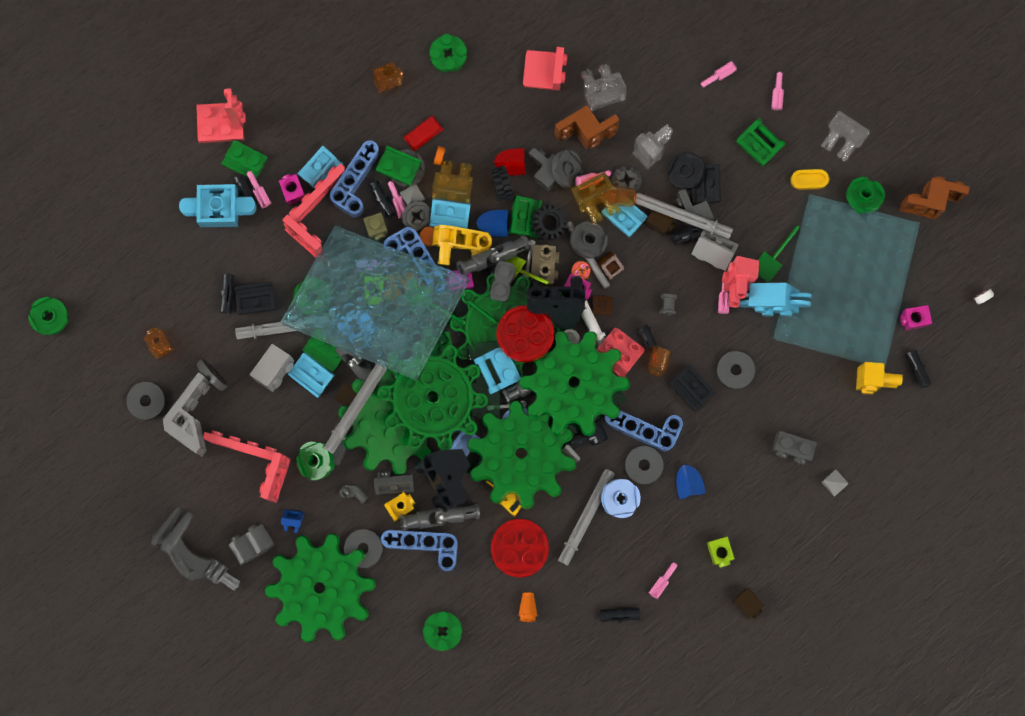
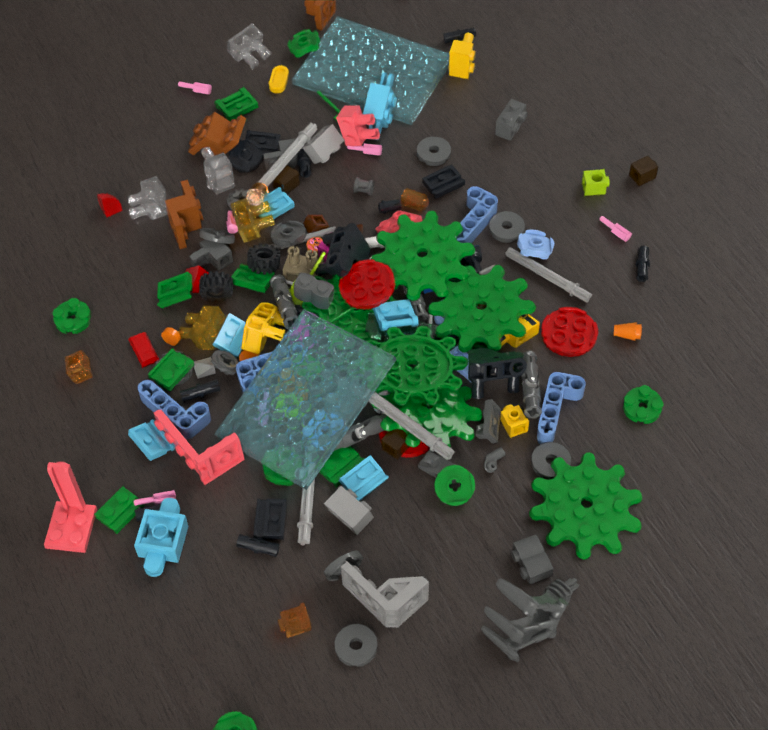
camera: 75 degrees left, 25 degrees down
(275, 470) = (461, 520): coral bracket -> none
(291, 197) = (165, 459): dark pink brick -> none
(292, 518) = (511, 516): blue tile -> none
(376, 227) = (226, 396): olive brick -> none
(397, 201) = (207, 377): bright pink axle -> none
(492, 144) = (174, 290): none -> green plate
(494, 223) = (250, 299): blue brick -> none
(544, 69) = (117, 239): coral bracket -> none
(591, 47) = (109, 204): none -> red brick
(689, 482) = (529, 196): blue brick -> none
(703, 133) = (217, 134): none -> dark orange bracket
(720, 73) = (165, 121): bright pink axle -> none
(834, 482) = (545, 102): light grey slope -> none
(924, 317) = (416, 28): dark pink brick -> none

